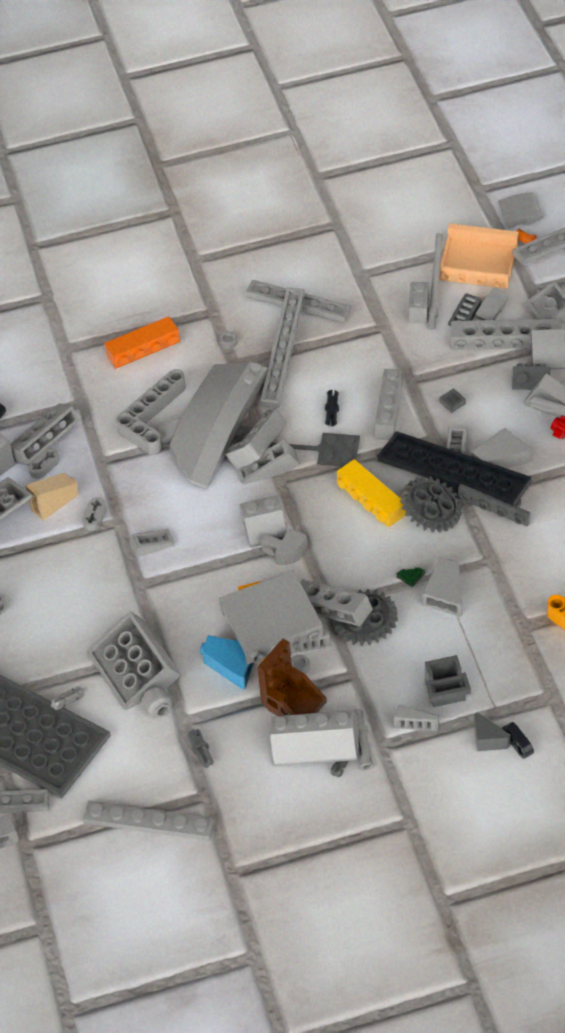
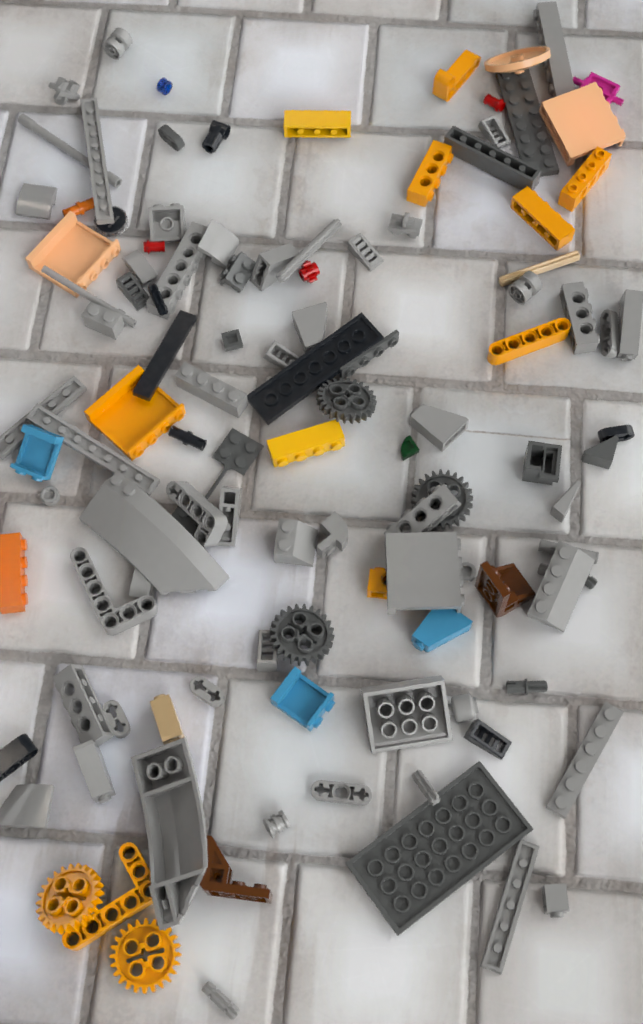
camera: 70 degrees left, 15 degrees up
(43, 633) = (325, 795): none -> light grey beam
(115, 581) = (302, 700): none -> dark azure panel
(135, 719) = (484, 728): none -> black slope
(193, 562) = (291, 646): none -> dark grey gear
(259, 312) = (37, 453): none -> dark azure panel
(338, 362) = (132, 421): none -> light orange panel
(409, 359) = (164, 355): none -> black tile
(457, 325) = (157, 299): none -> black axle
(519, 304) = (158, 246): none -> red pin
(533, 271) = (116, 228): none -> tile

